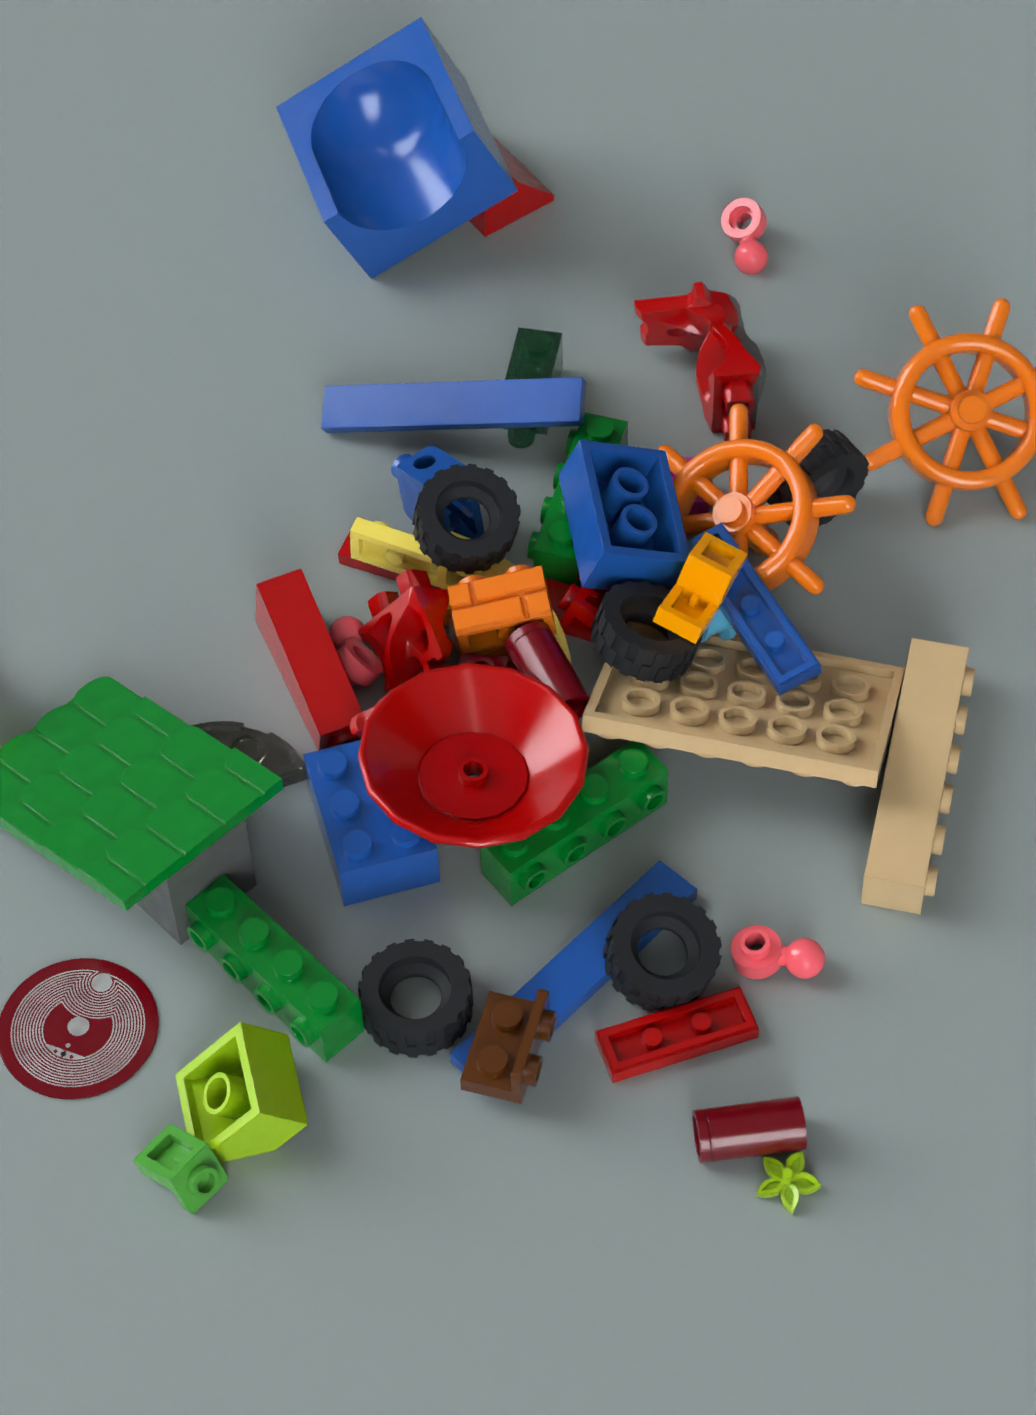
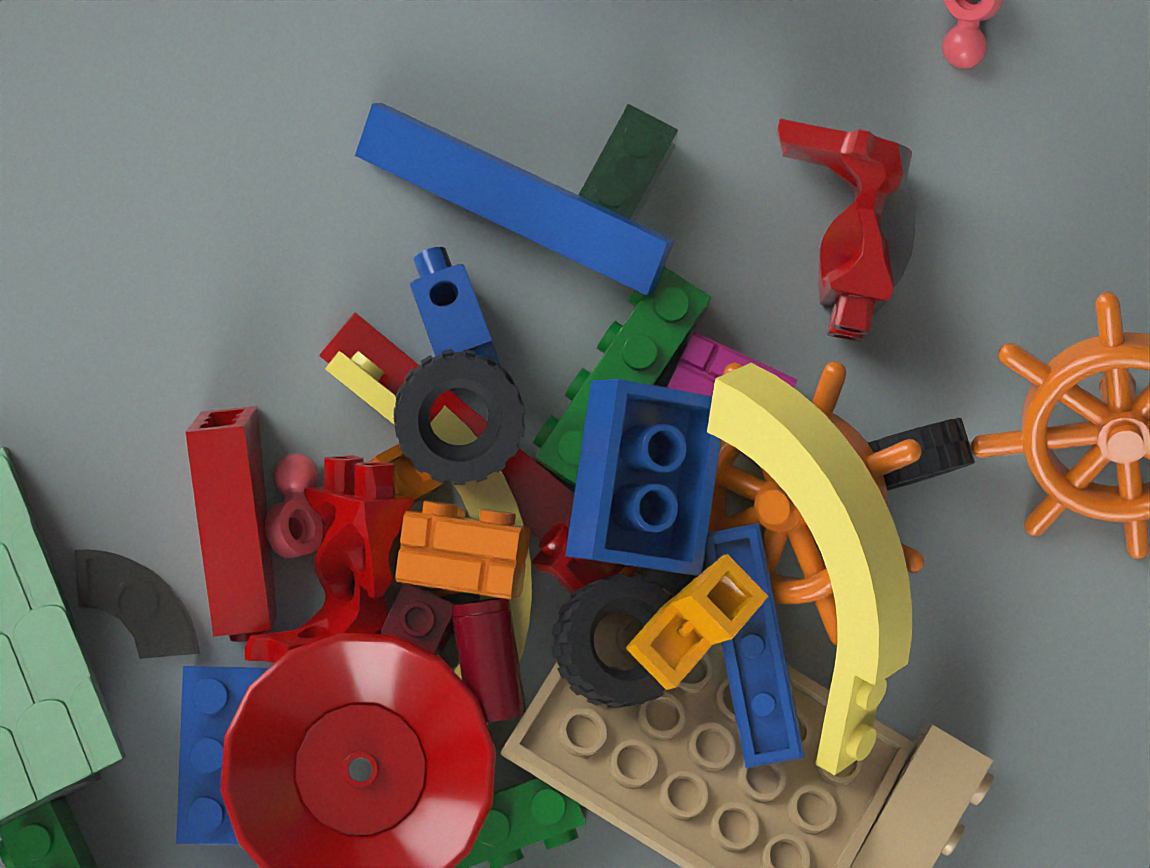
camera: 20 degrees right, 30 degrees up
(809, 497) = (854, 536): none -> light yellow arch

